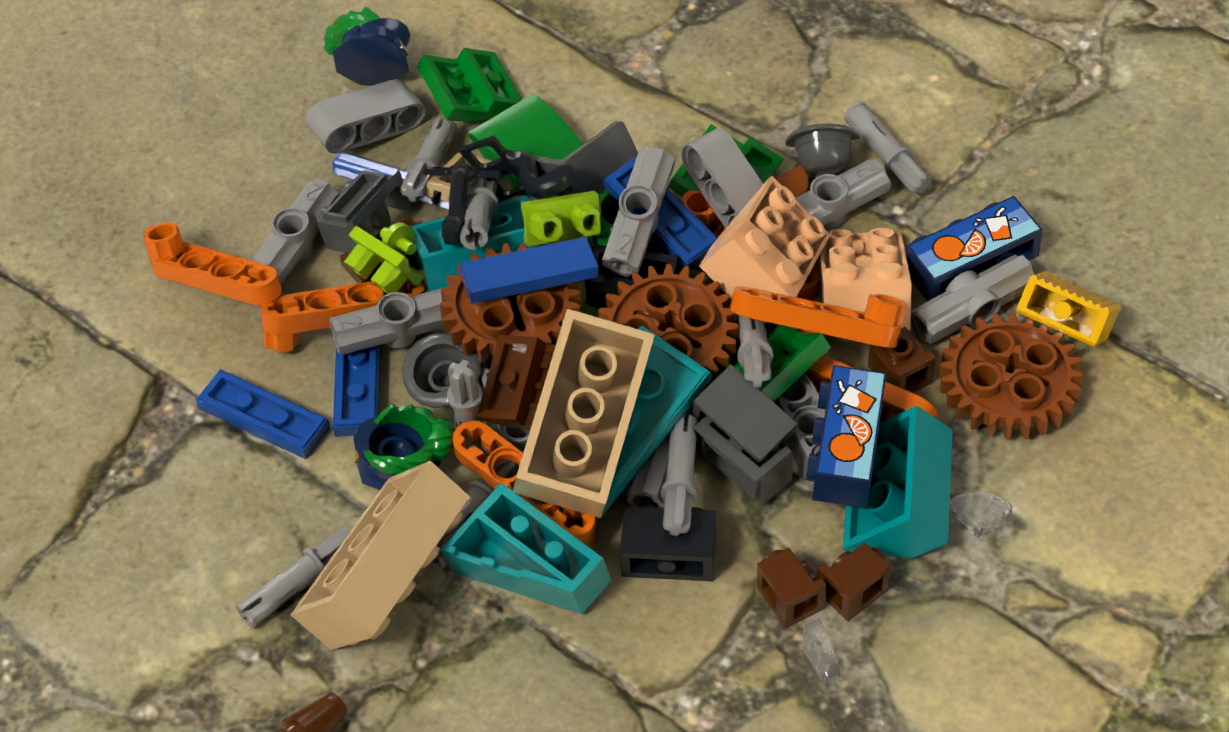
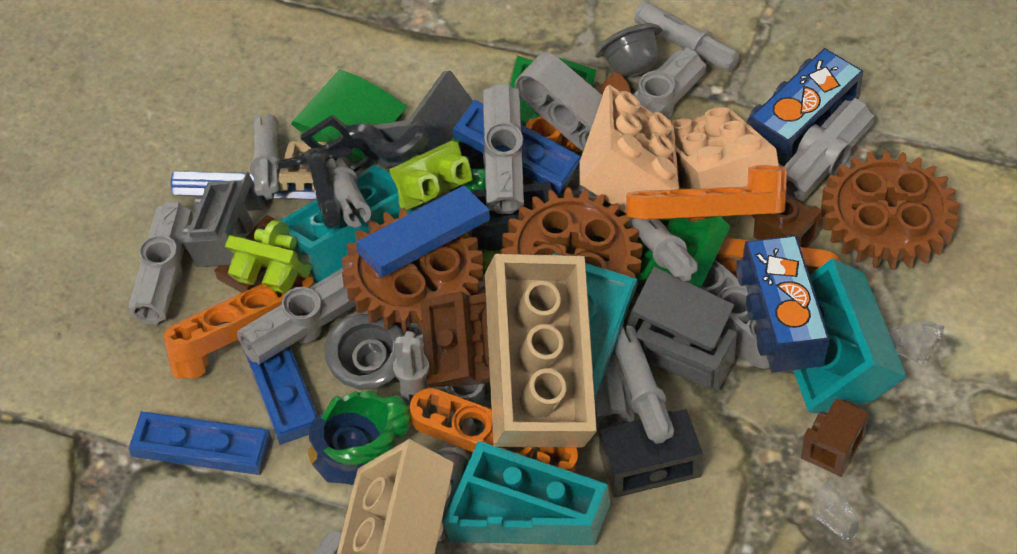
camera: 20 degrees left, 0 degrees up
(209, 268) = (56, 317): orange beam -> none
(365, 116) = (186, 131): light grey beam -> none
(368, 47) = (163, 66): dark blue piece -> none
(470, 86) = (273, 78): green slope -> none
(790, 587) = (780, 460): reddish brown brick -> none
(1068, 308) = (916, 135): yellow brick -> none

